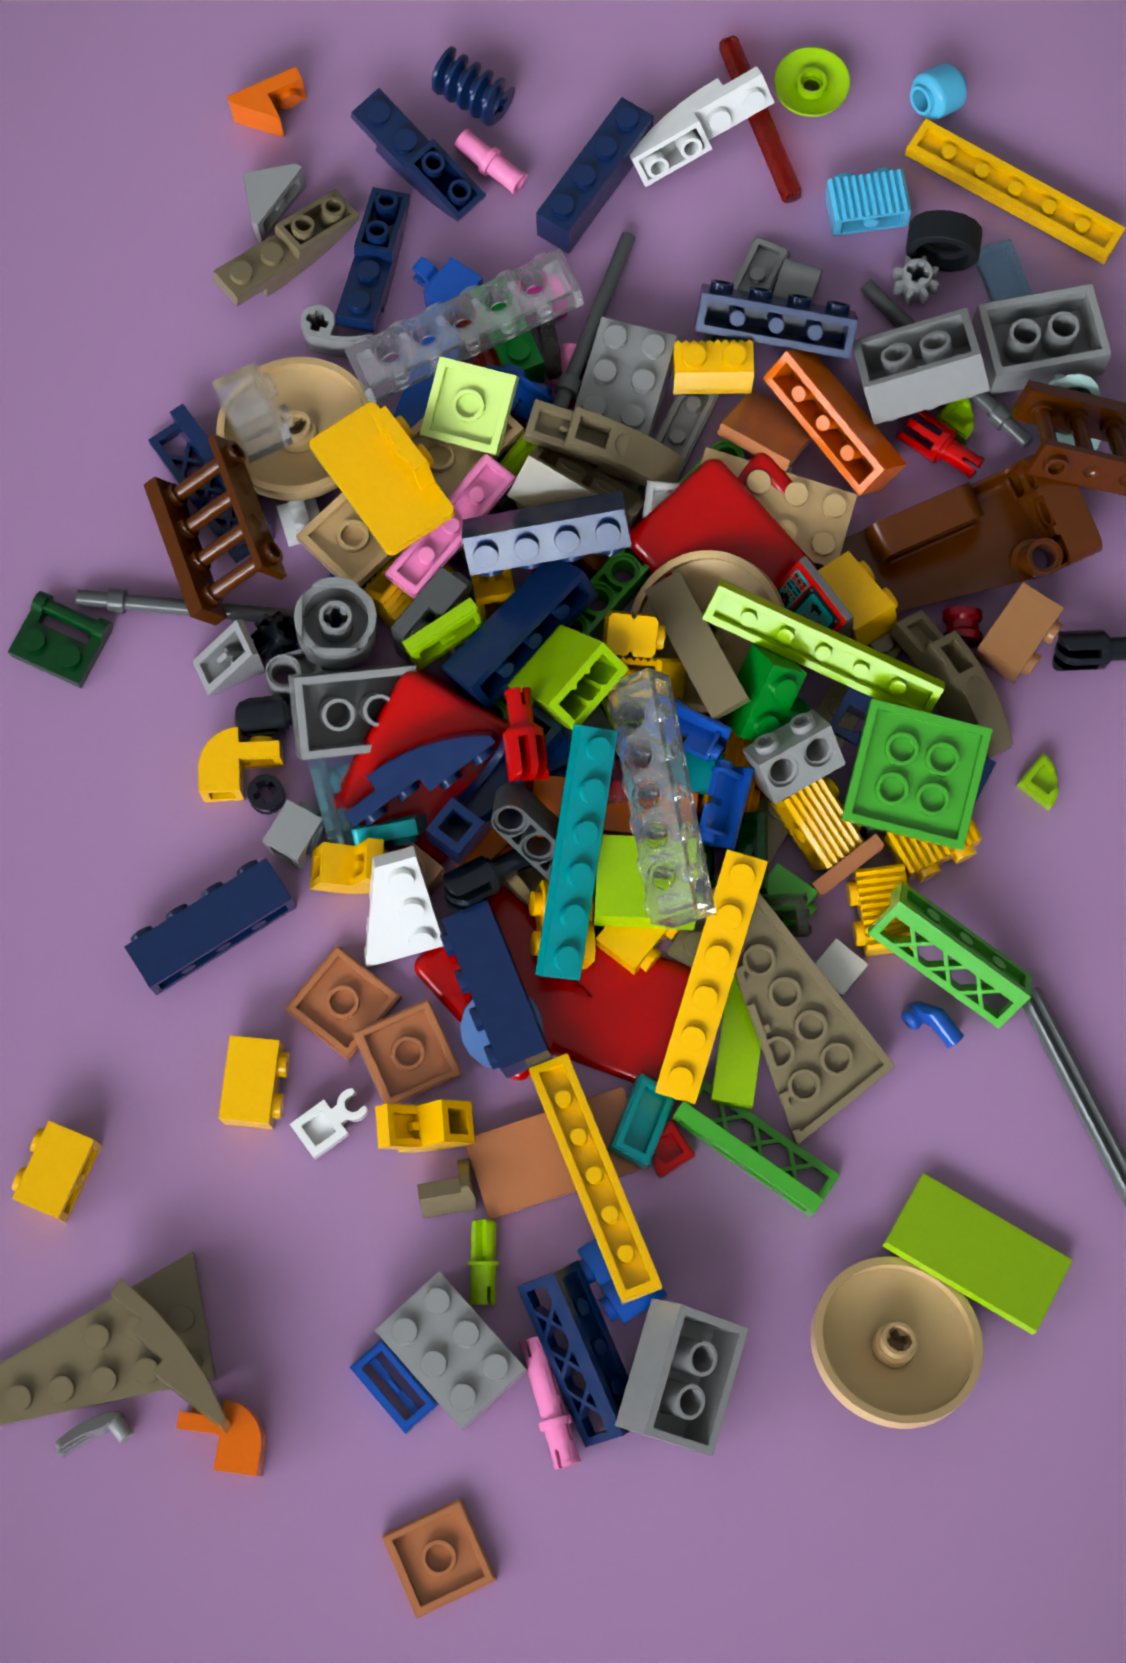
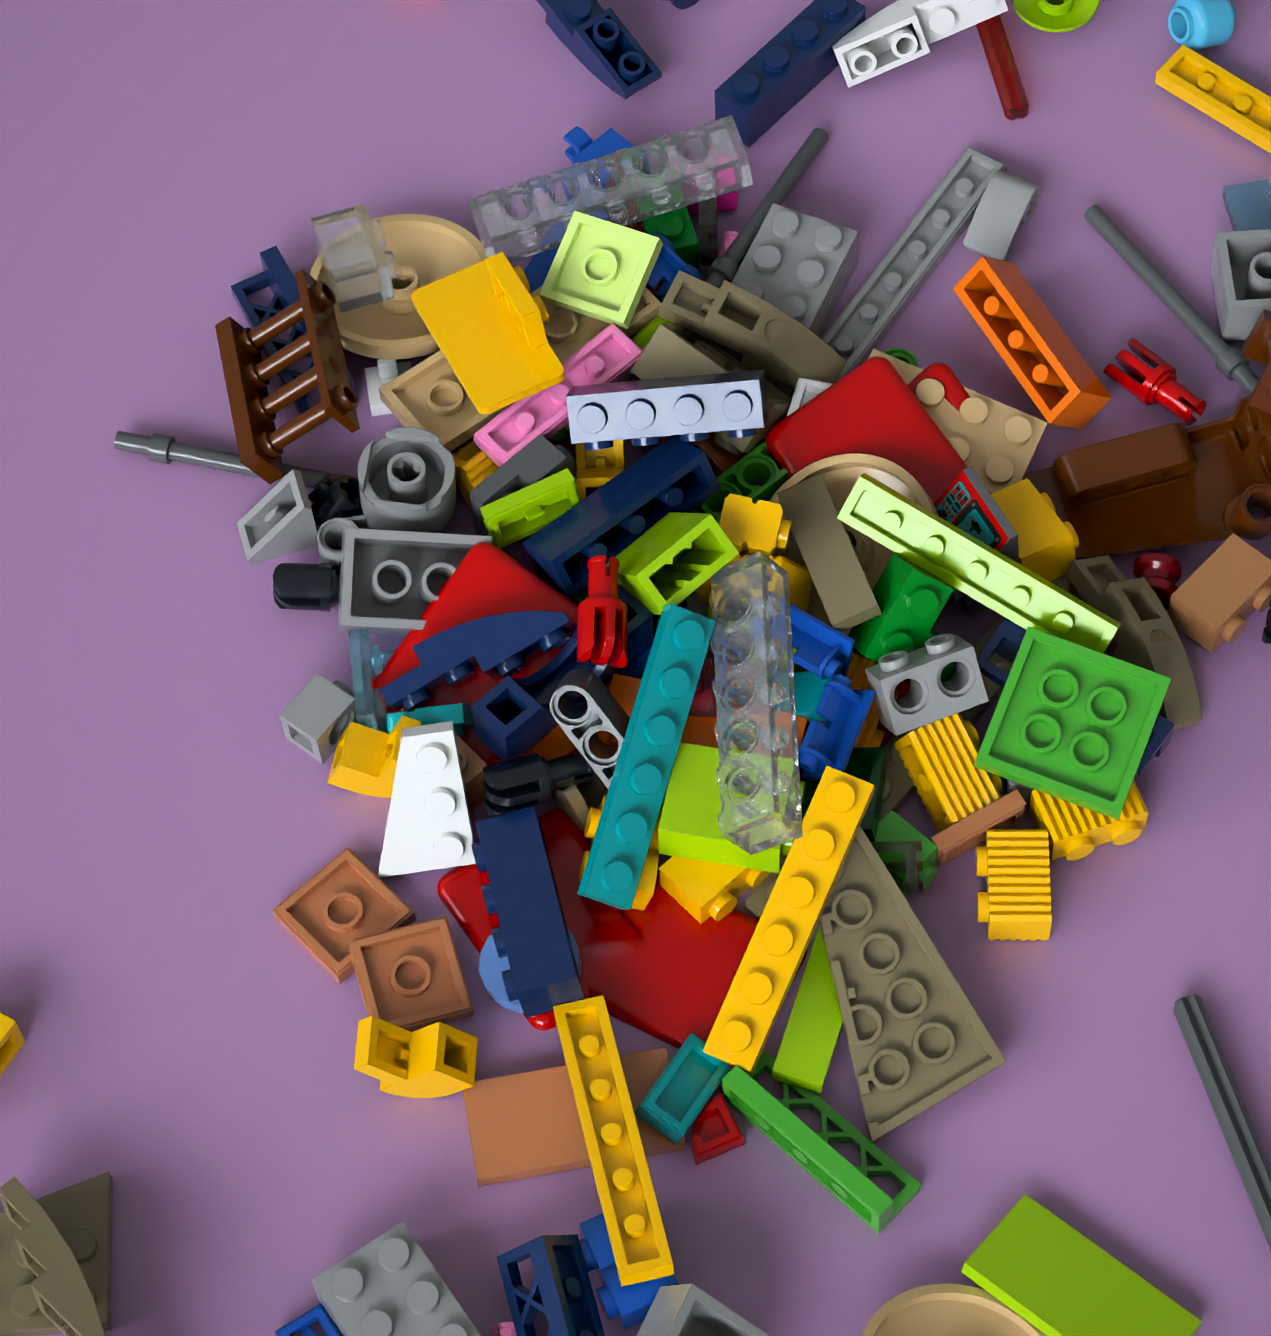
camera: 10 degrees right, 15 degrees down
(55, 651) = (80, 494): dark green plate -> none
(210, 925) = (201, 806): dark blue brick -> none
(224, 762) = (257, 626): yellow brick -> none
(252, 1082) = (218, 986): yellow brick -> none
(271, 194) = (418, 51): light grey slope -> none
(278, 795) = (288, 660): black bush -> none
(291, 250) = (435, 106): dark tan slope -> none
(323, 1127) = (295, 1049): white plate -> none
(324, 340) = (449, 193): light grey panel -> none
(374, 260) = (524, 126): dark blue slope -> none
(448, 1195) = (431, 1143): dark tan tile -> none
(483, 1262) = (461, 1229): lime axle -> none
(490, 161) = (673, 42): bright pink pin -> none
(713, 367) = (895, 270): yellow brick -> none
(765, 428) = (948, 339): nougat tile -> none
(776, 320) = (974, 227): dark blue brick -> none
(841, 966) = (958, 943): white tile -> none
(867, 201) = (1103, 123): medium azure brick -> none
(919, 270) = (1149, 209): light grey gear -> none
(921, 366) = (1139, 291): light grey brick -> none
(935, 1017) = (1062, 1014): blue arm -> none
(945, 238) = (1192, 148): black tyre -> none
(959, 417) = (1184, 357): lime tile -> none
(959, 943) = (1105, 927): bright green fence -> none
(1041, 782) = (1231, 766): lime tile -> none

